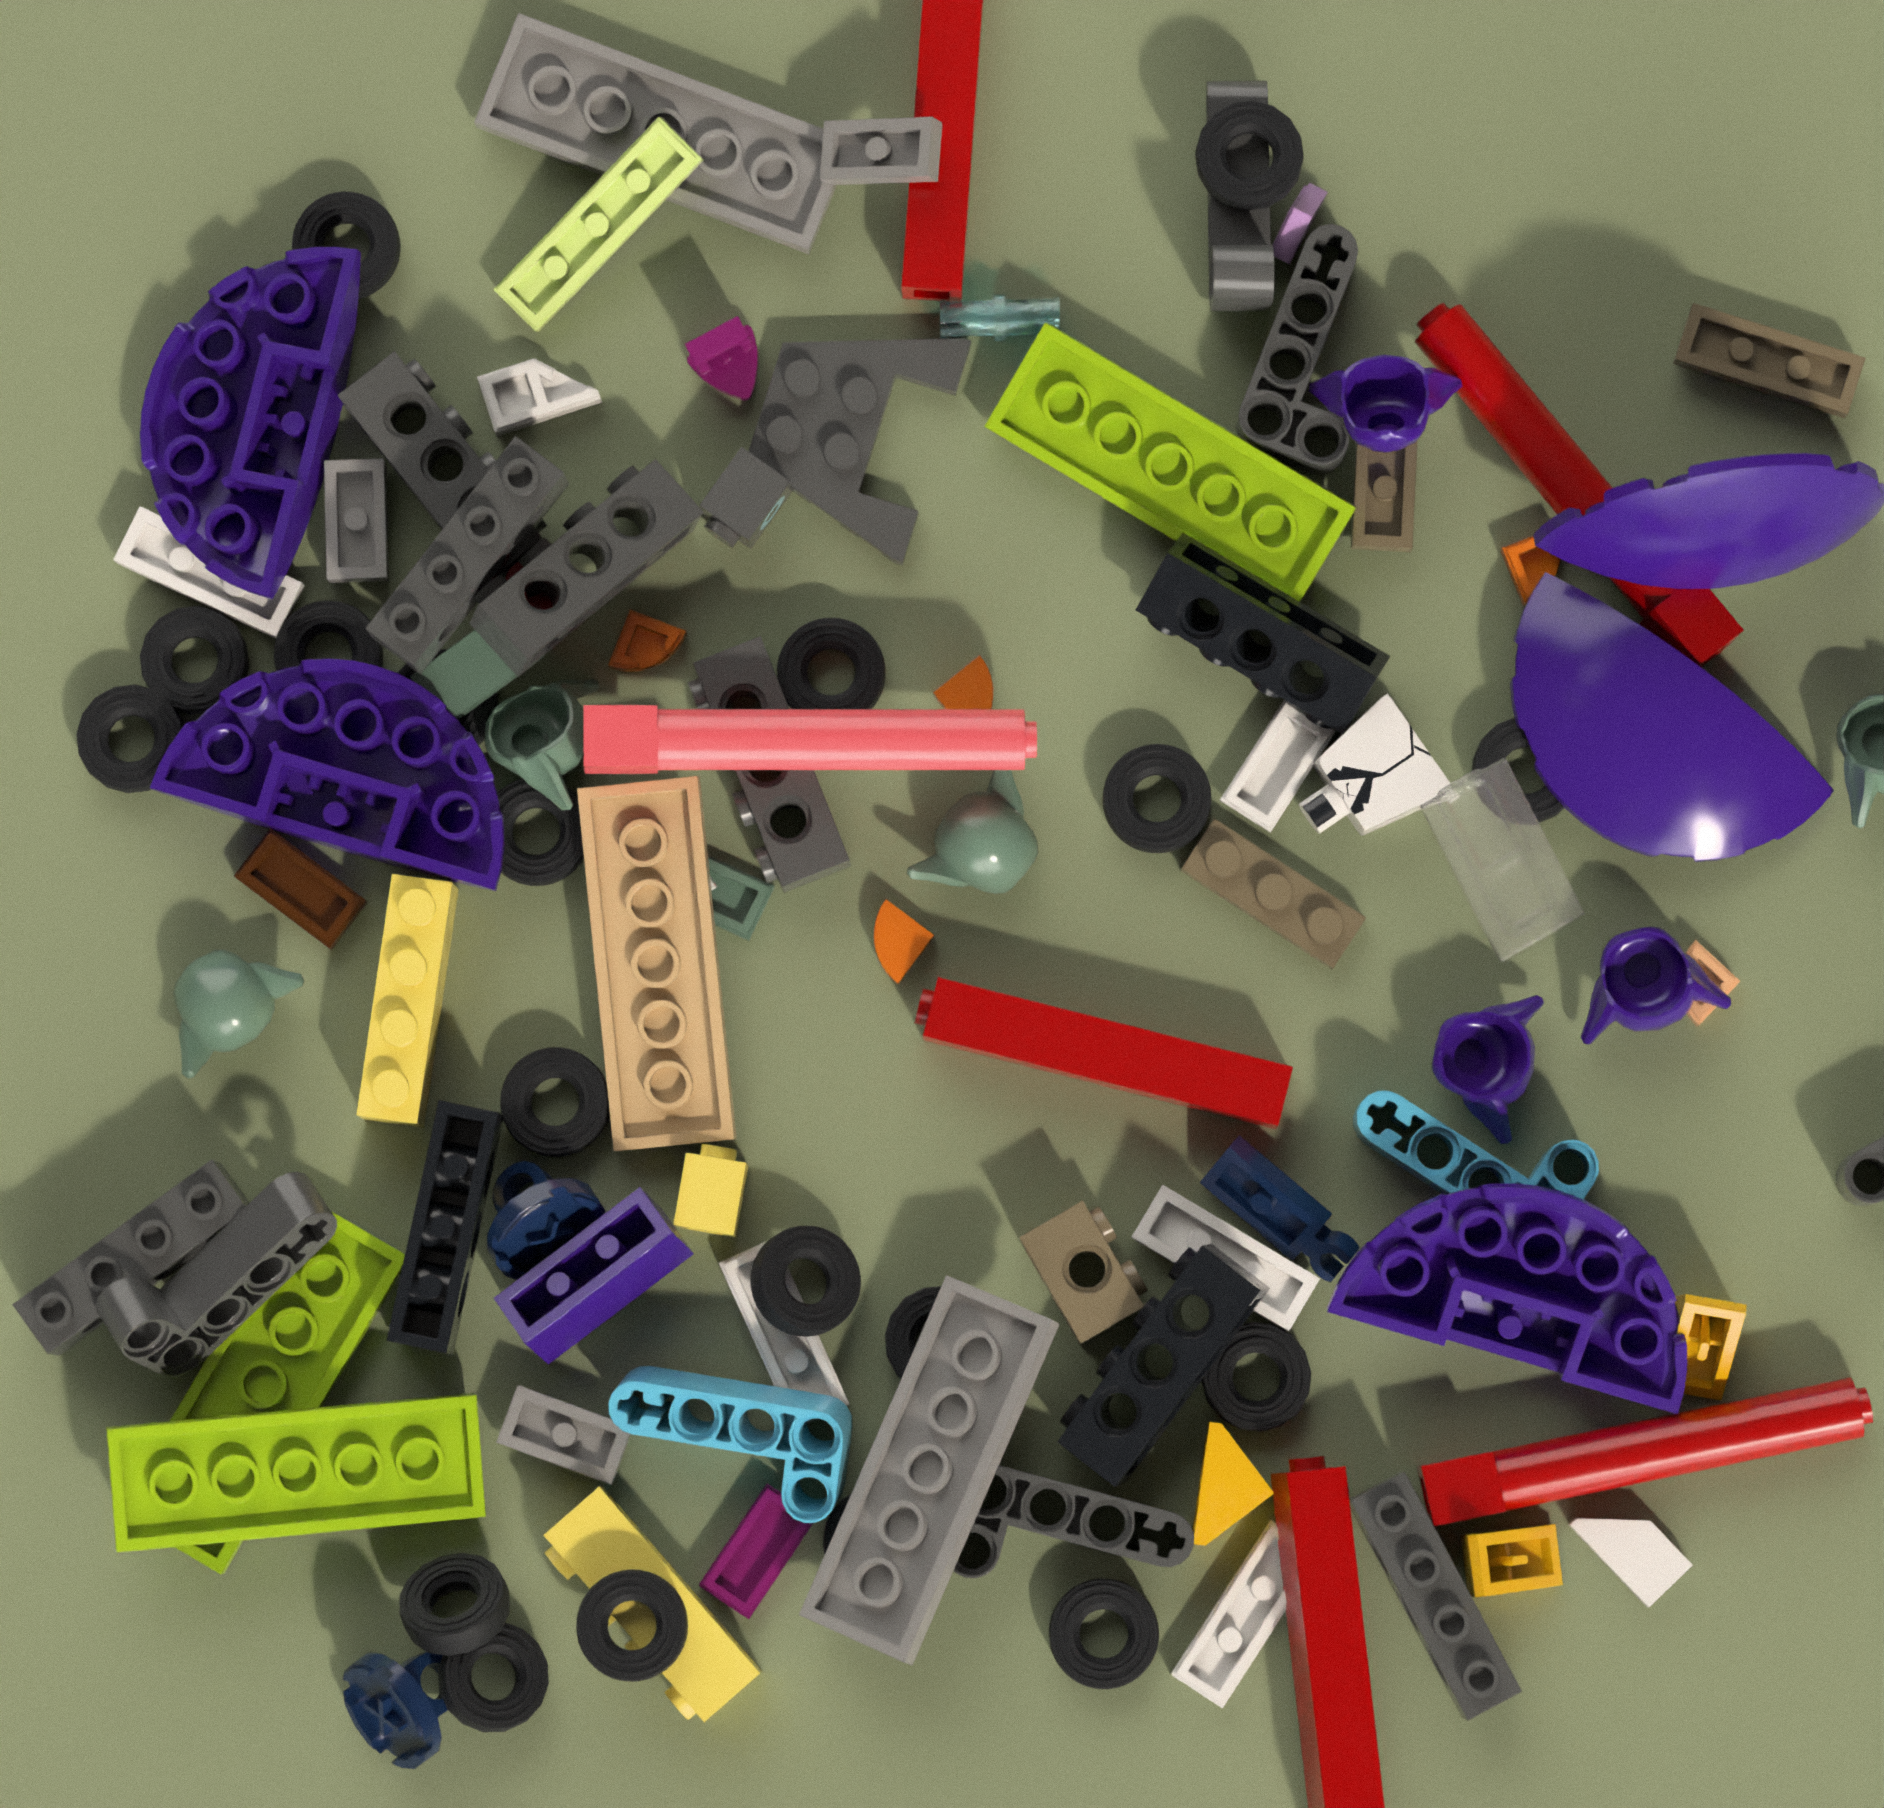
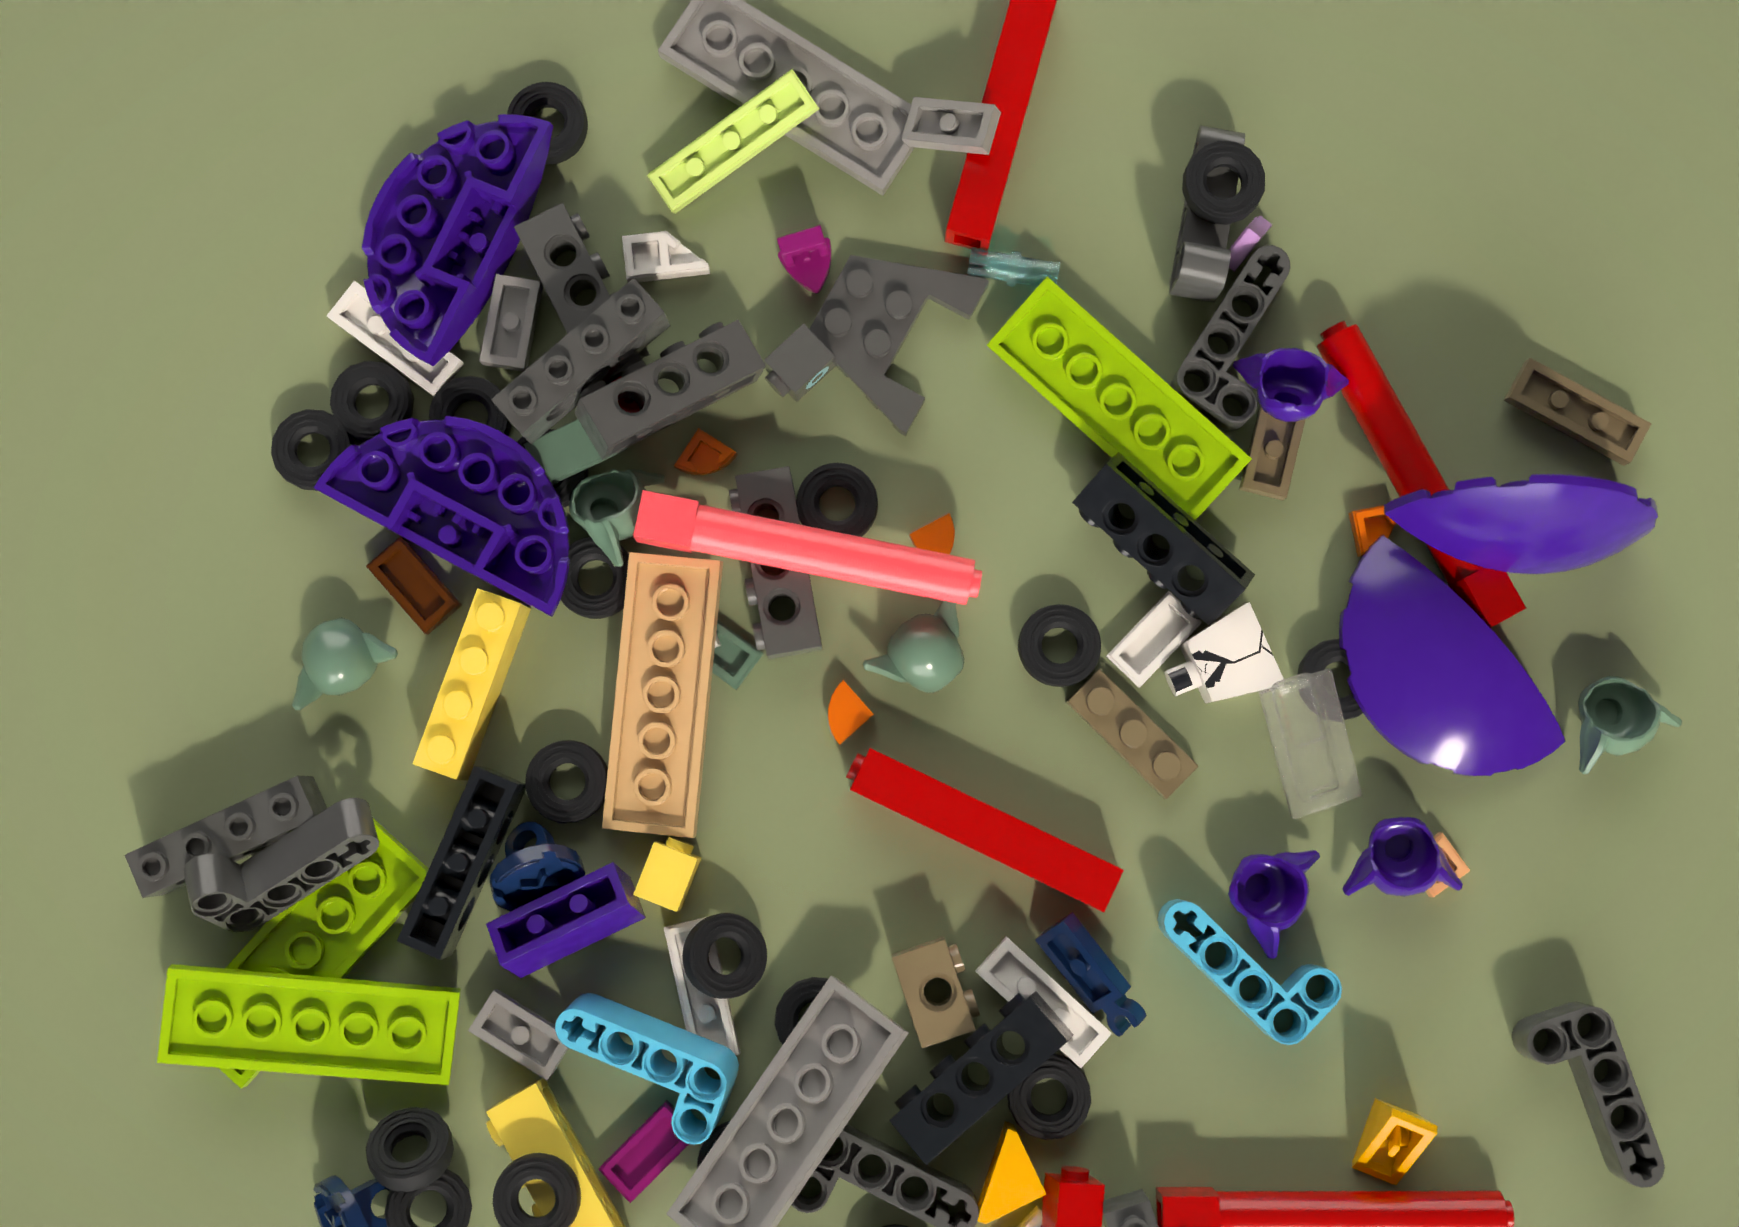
camera: 10 degrees right, 0 degrees up
(1527, 1281) = (1273, 1072): dark purple brick -> none

